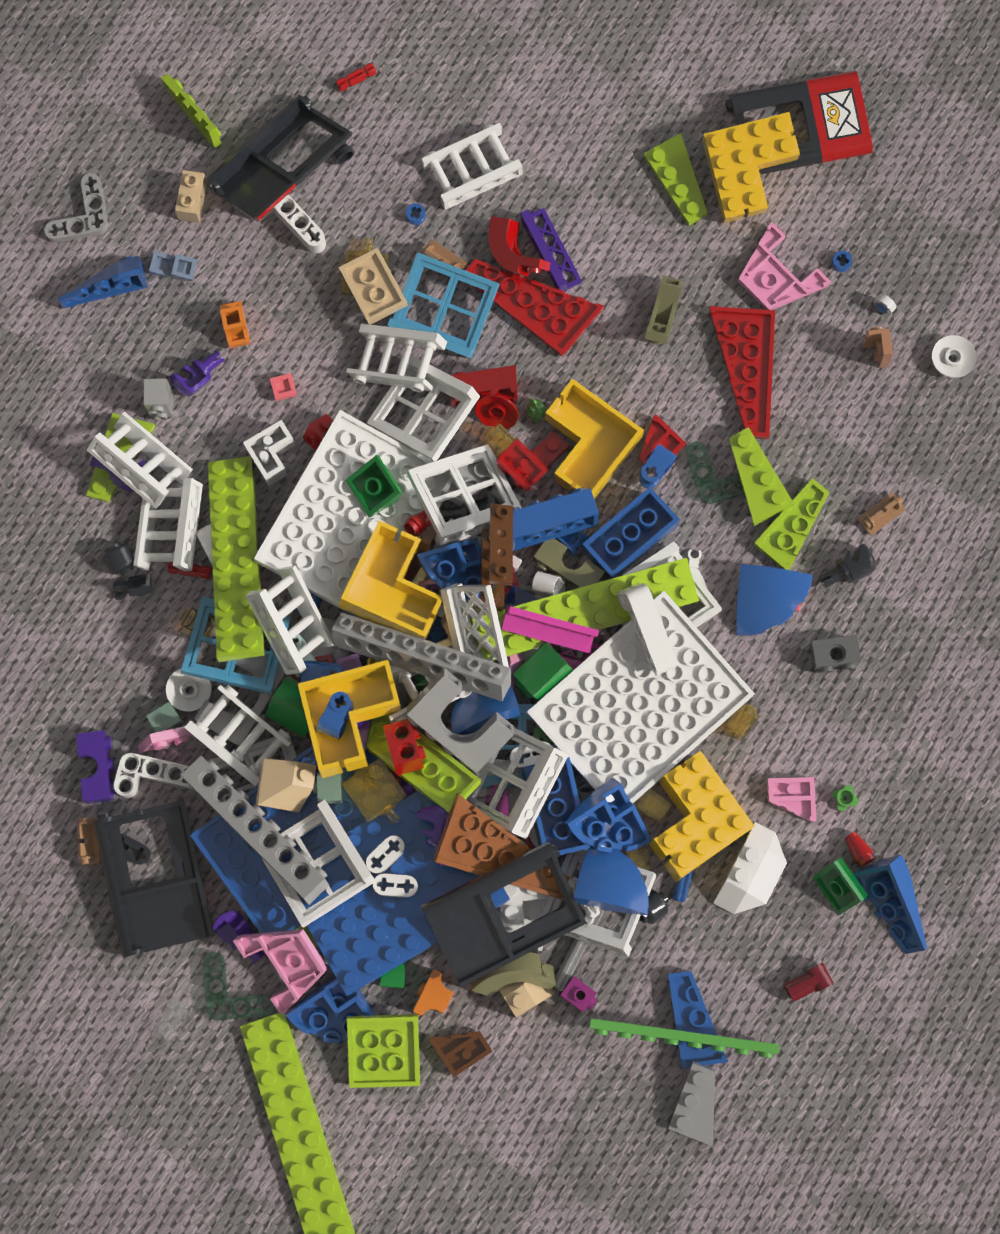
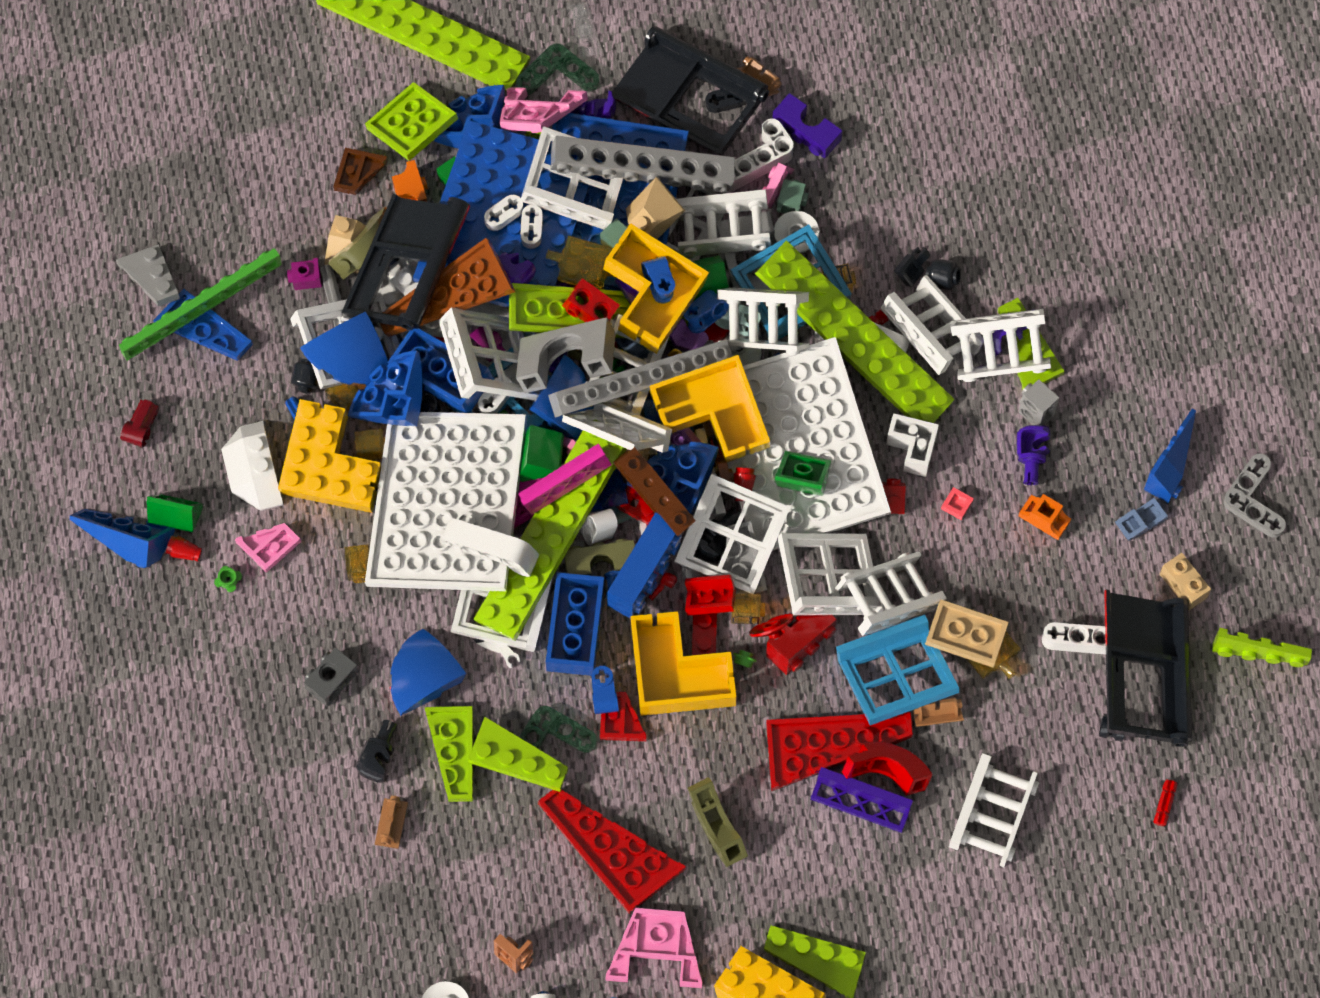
camera: 135 degrees right, 10 degrees down
(415, 221) = (1005, 729): blue bush -> none

